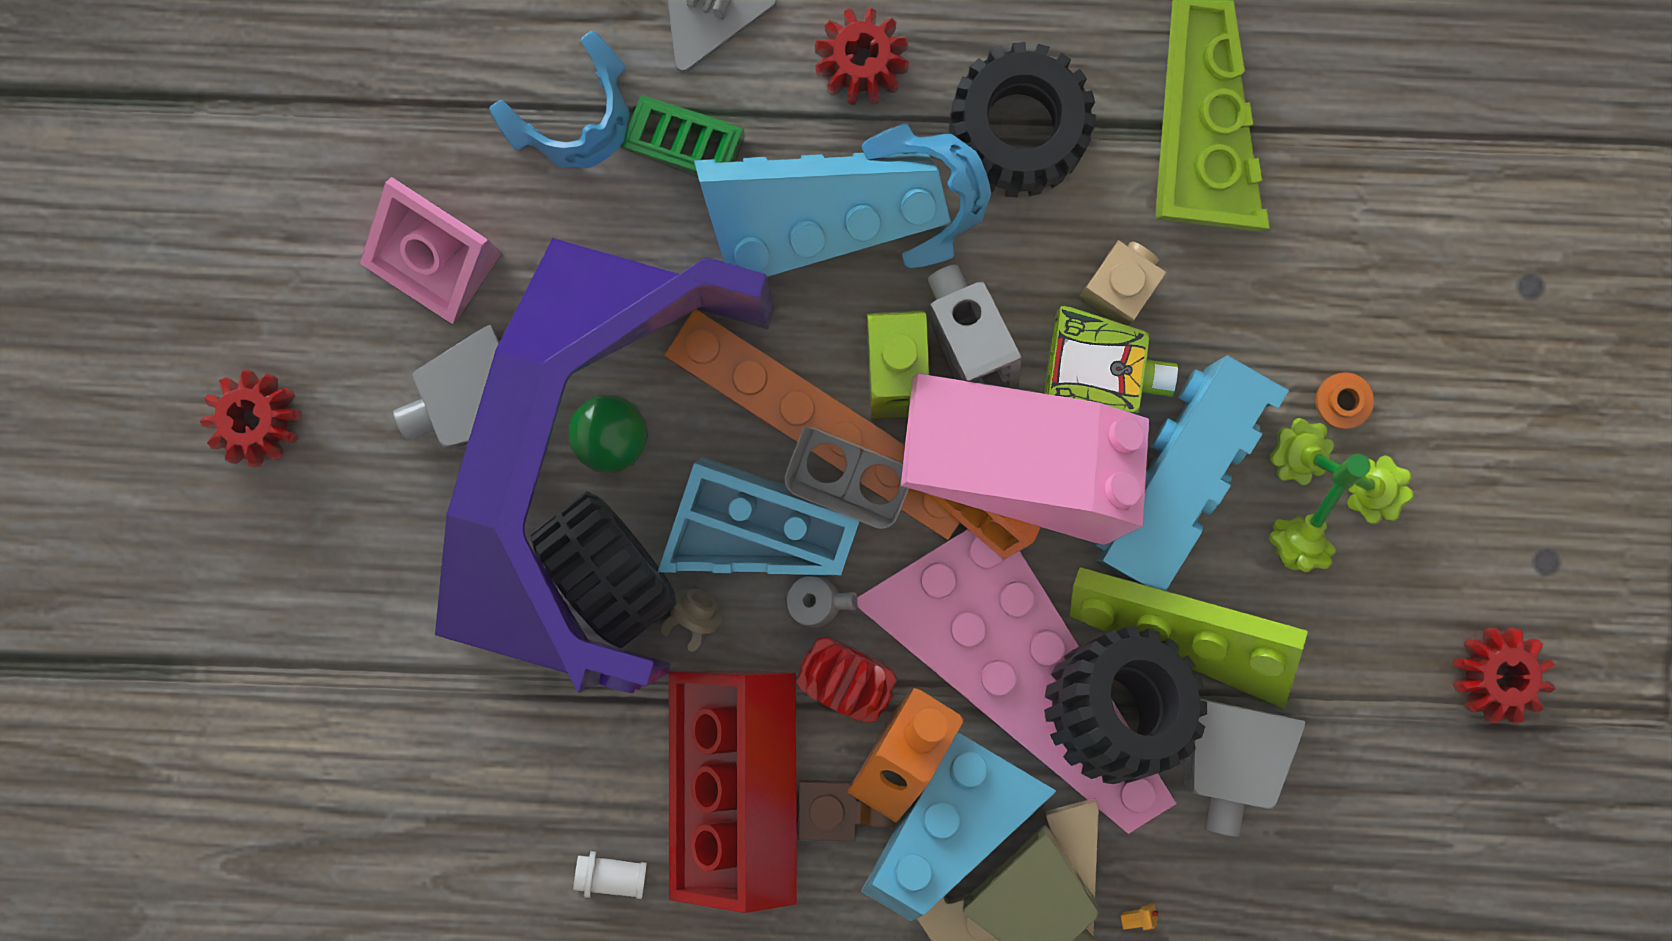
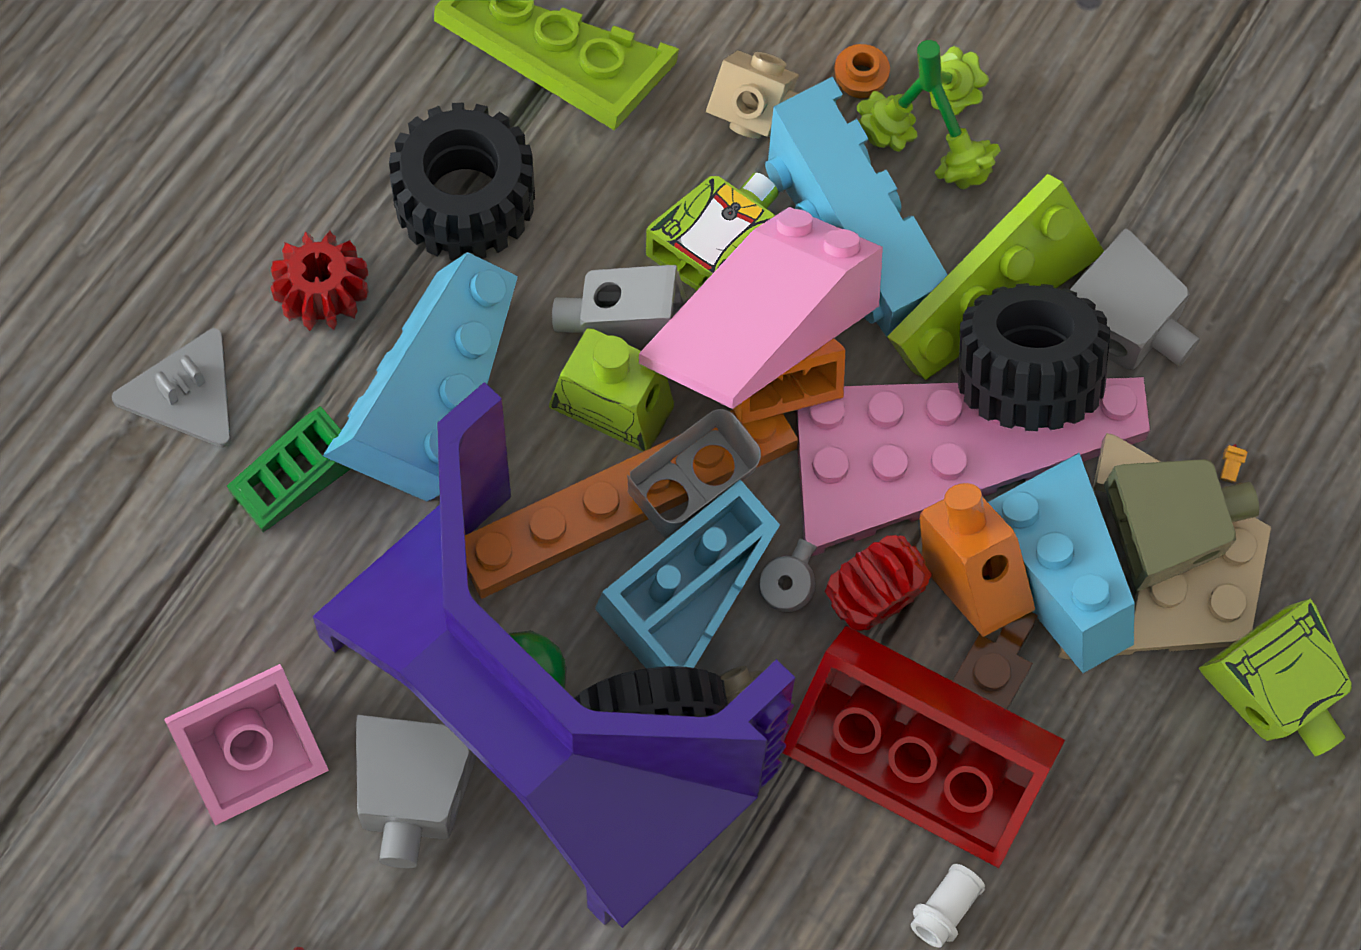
camera: 65 degrees left, 20 degrees down
(597, 141) = (245, 538): dark azure helmet -> none
(967, 179) = (491, 232): dark azure helmet -> none
(1123, 282) = (654, 176): tan brick -> none
(1256, 321) = (749, 90): none -> tan brick
(1524, 675) = (1168, 69): red gear -> none

